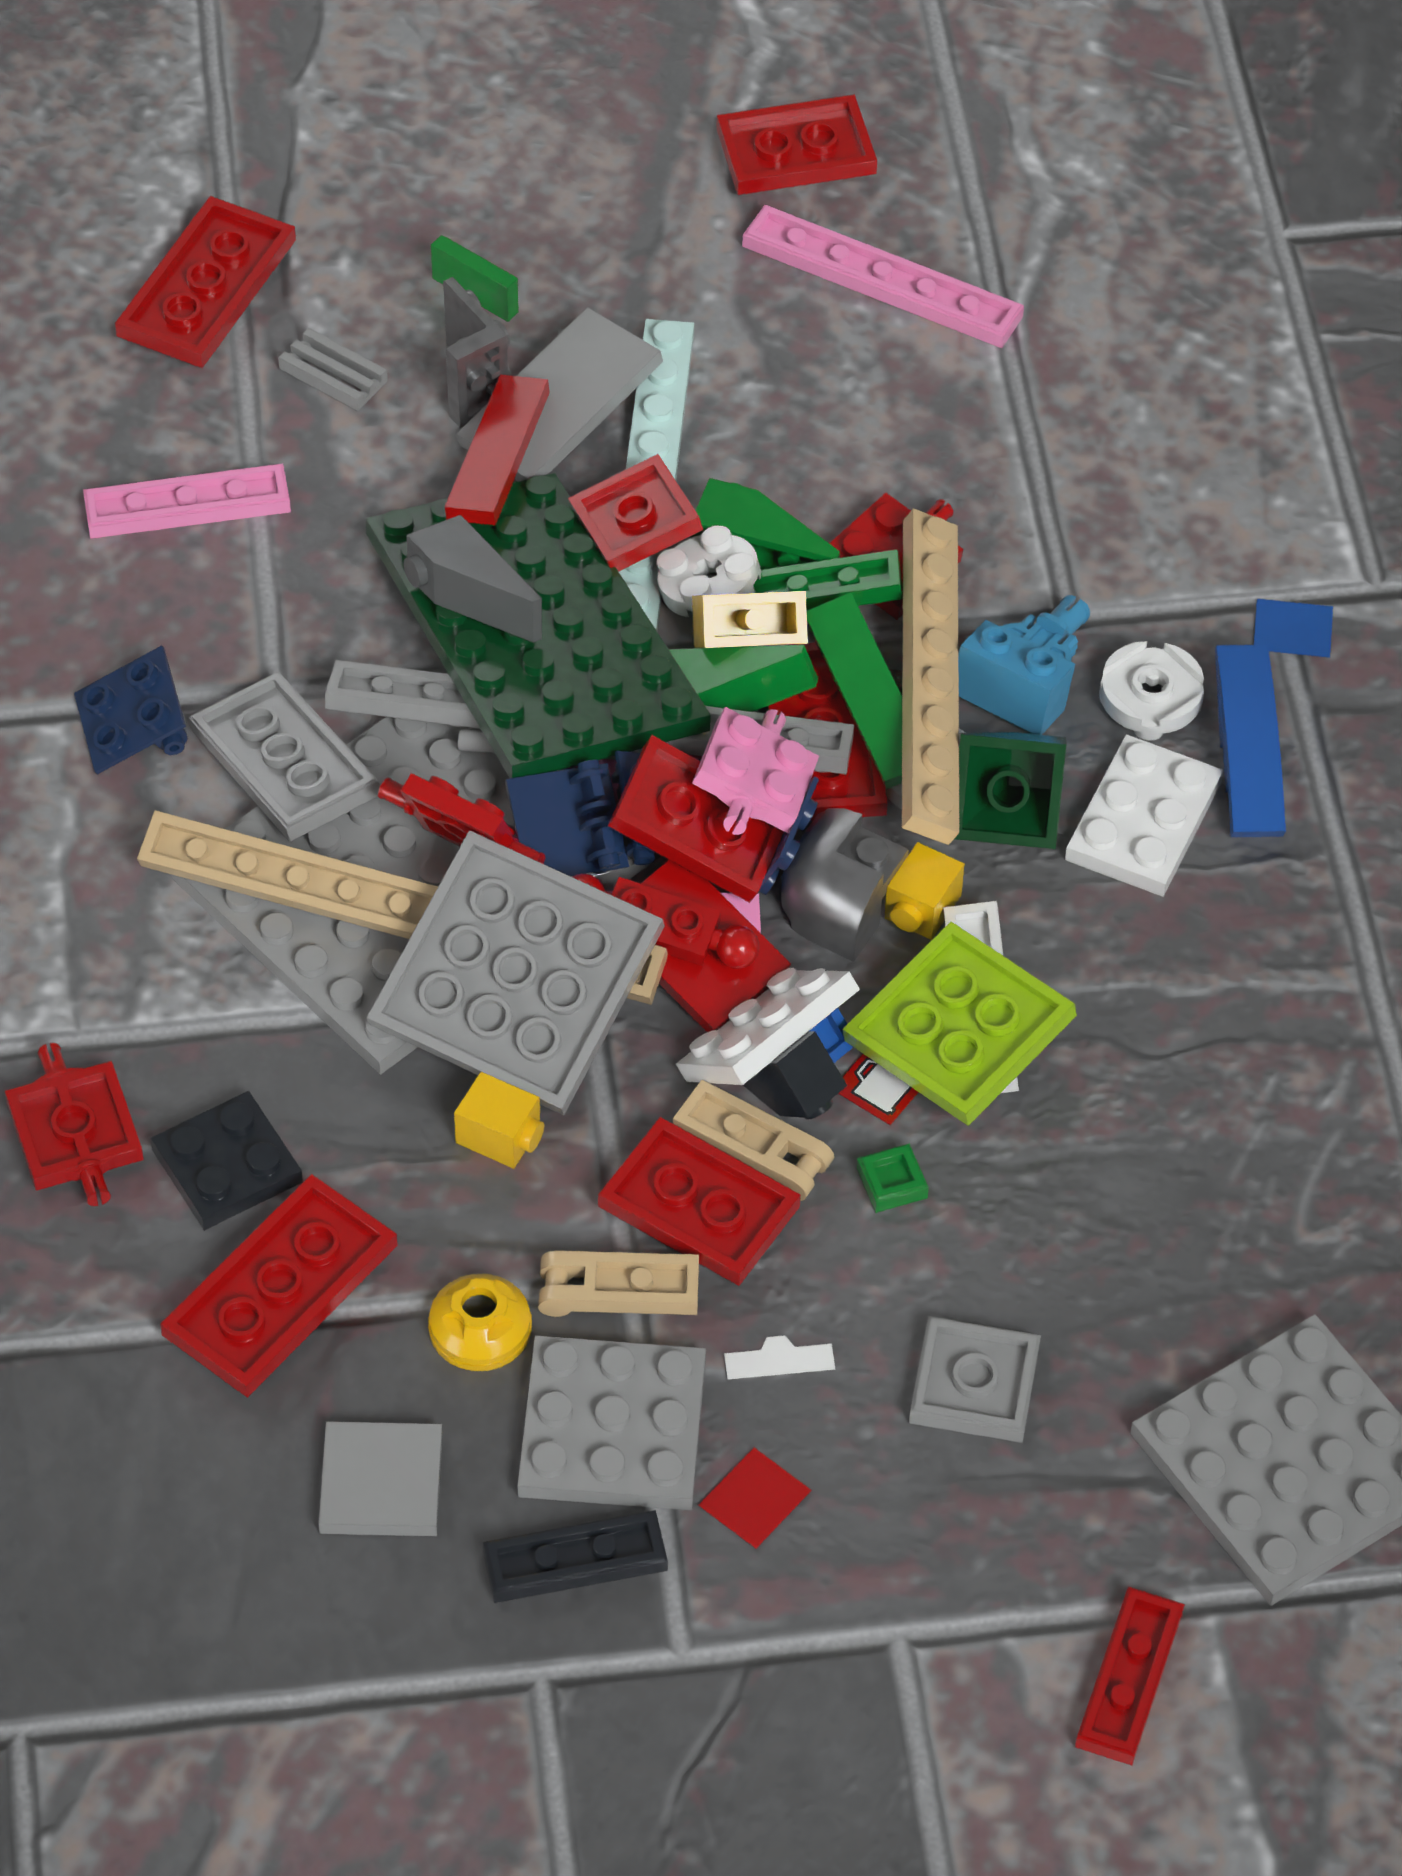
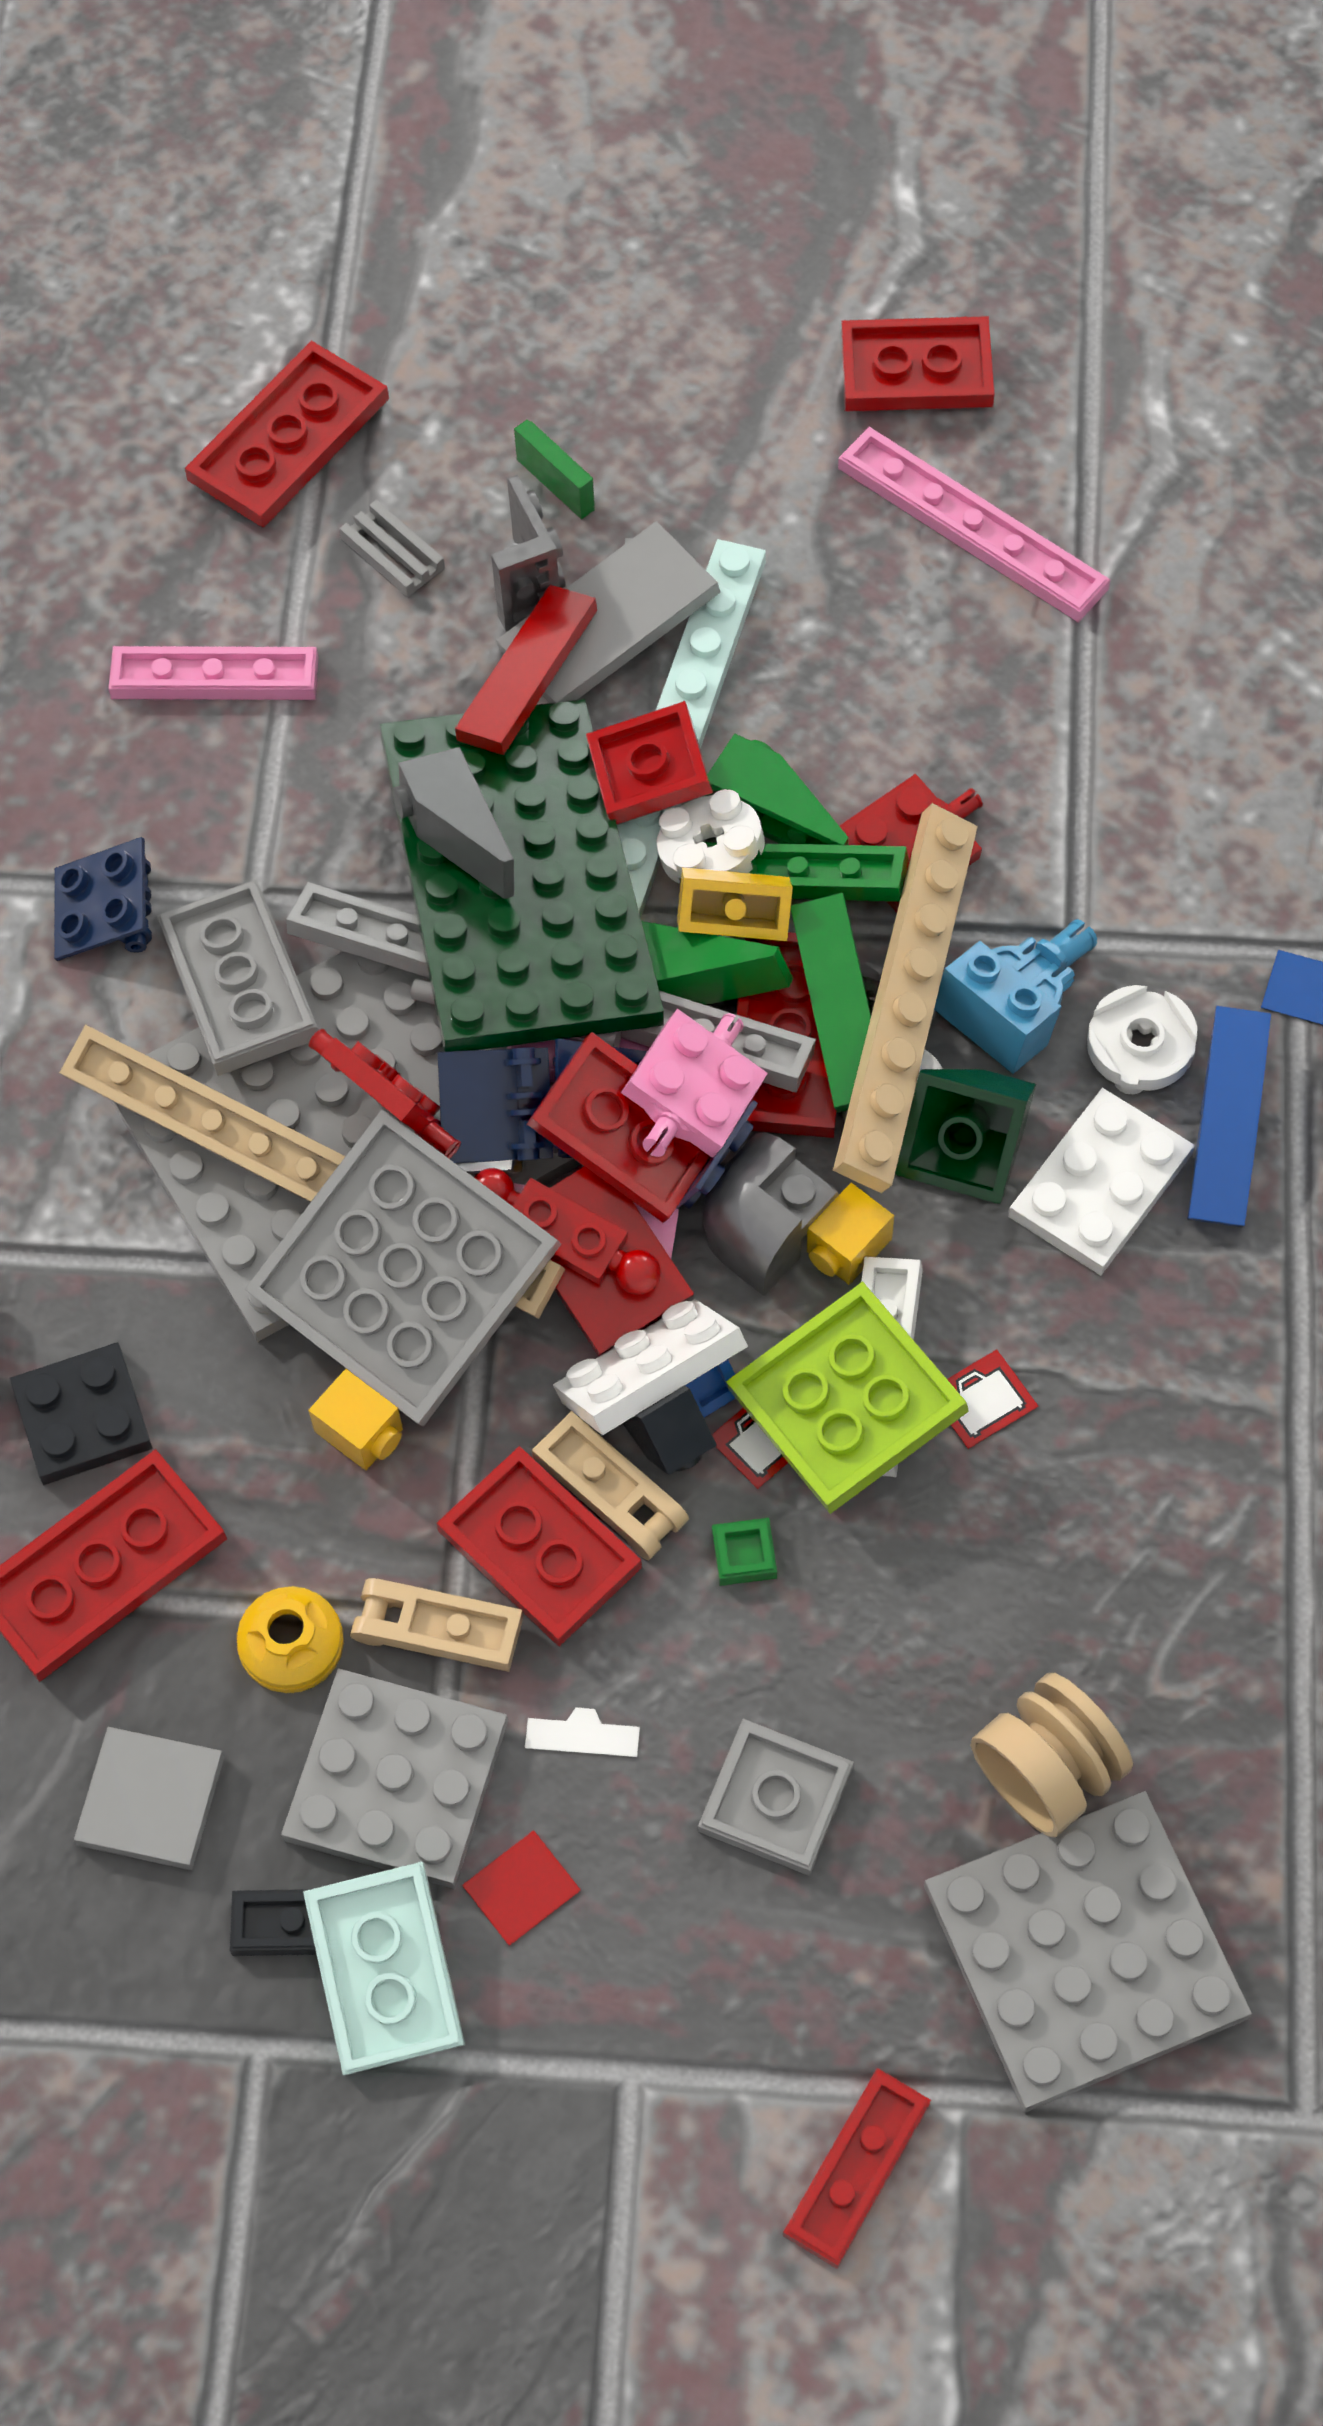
camera: 15 degrees right, 10 degrees up
(646, 1580) = (383, 1968): none -> light aqua tile
(1096, 1016) = (992, 1396): none -> sticker
(1225, 1289) = (1051, 1754): none -> tan wheel

